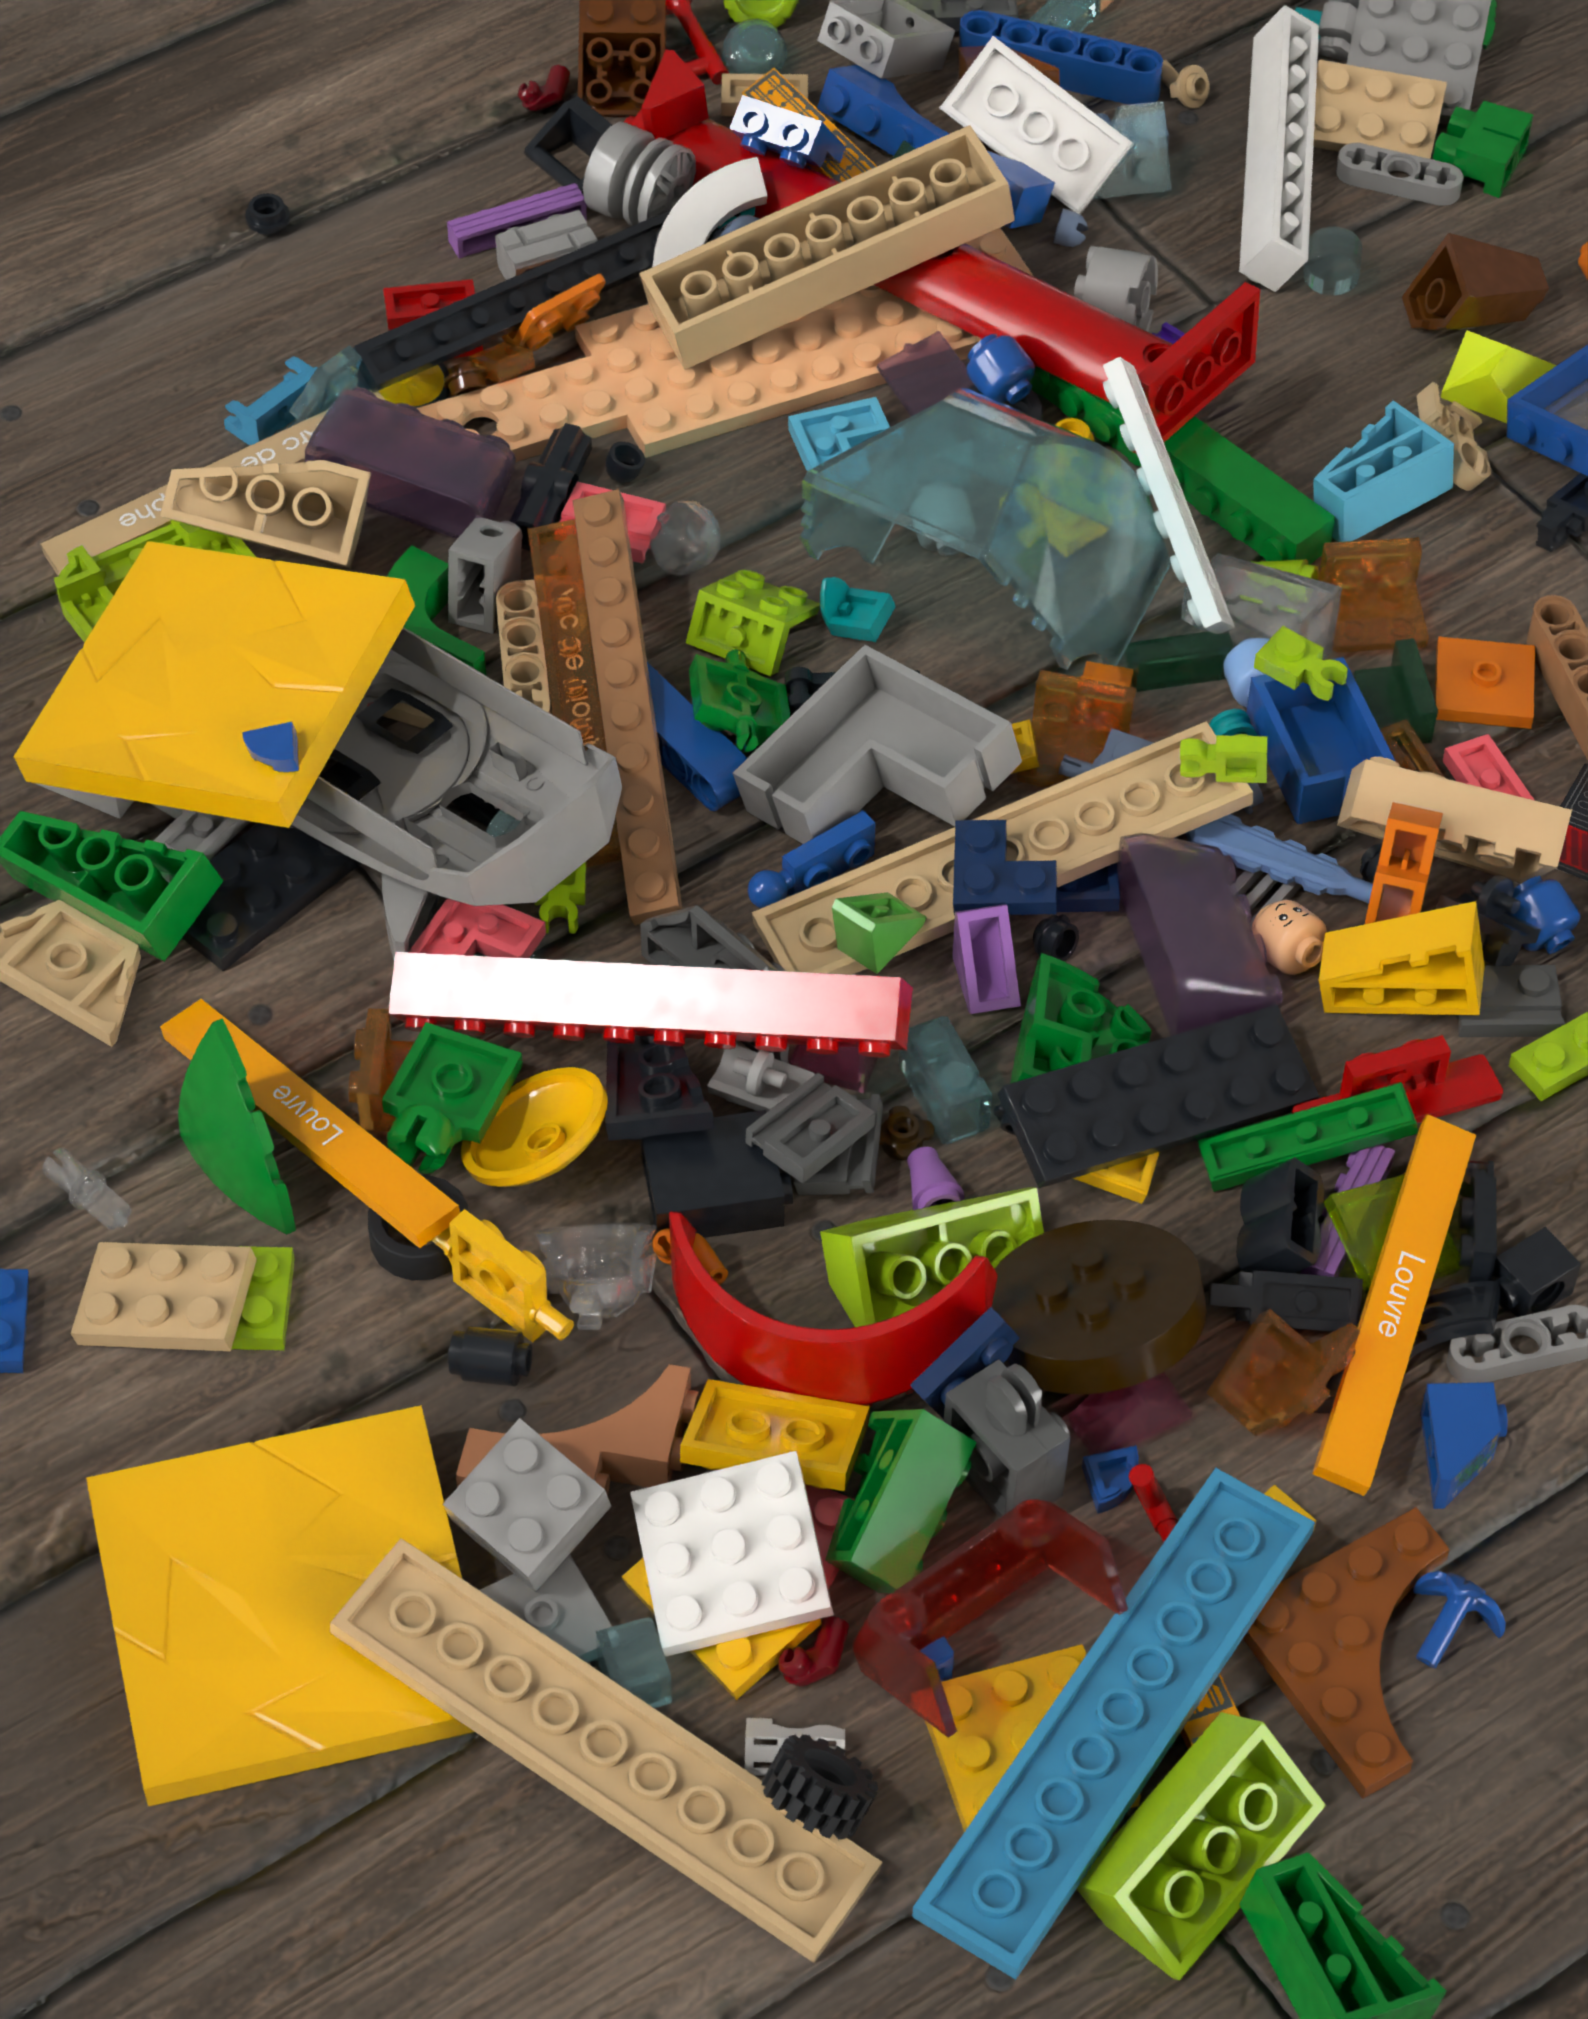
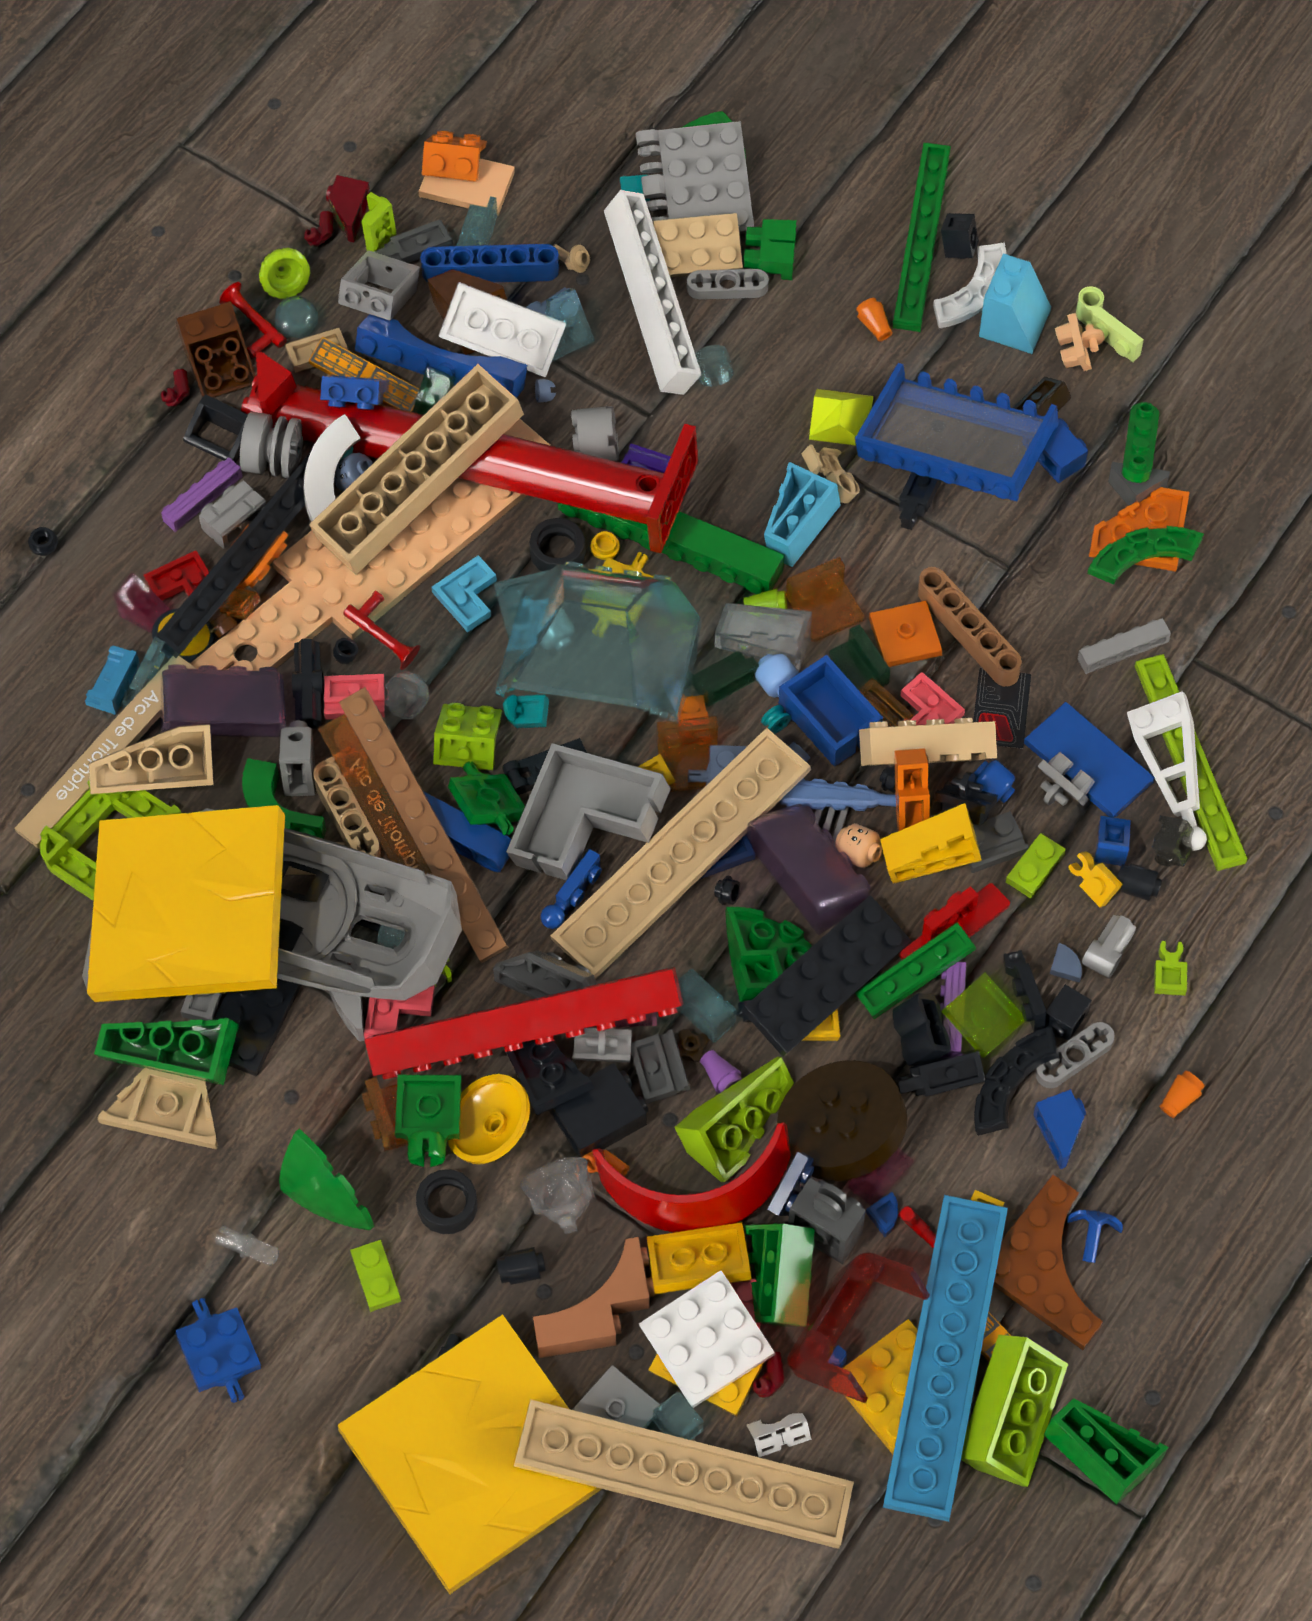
camera: 20 degrees left, 10 degrees up
(164, 1296) = (323, 1296): tan plate -> none
(274, 746) = (251, 944): blue tile -> none
(326, 1133) = (364, 1162): light orange tile -> none
(354, 311) = (138, 603): none -> clear pink slope
(501, 1276) = (509, 1219): yellow plate -> none
(527, 1504) = (588, 1353): light grey brick -> none
(711, 490) = (360, 618): none -> red piece
(810, 1128) = (644, 1066): dark grey plate -> none
(819, 1786) = (806, 1453): black tyre -> none
(874, 927) = (629, 924): bright green slope -> none
(924, 373) = (504, 530): piece -> none
(985, 959) = (695, 920): medium lavender slope -> none
(988, 879) = (681, 874): dark blue plate -> none
(1000, 368) = (551, 517): blue head -> none
(1173, 513) = (684, 578): white plate -> none
(1232, 758) = (793, 751): lime plate -> none
(1280, 1373) = (956, 1123): clear orange bracket -> none
(1298, 660) = (801, 667): lime plate -> none
(1394, 1306) = (1002, 1059): light orange tile -> none
(1474, 286) = (804, 360): reddish brown slope -> none
(1561, 1209) = (1066, 964): none -> sand blue tile

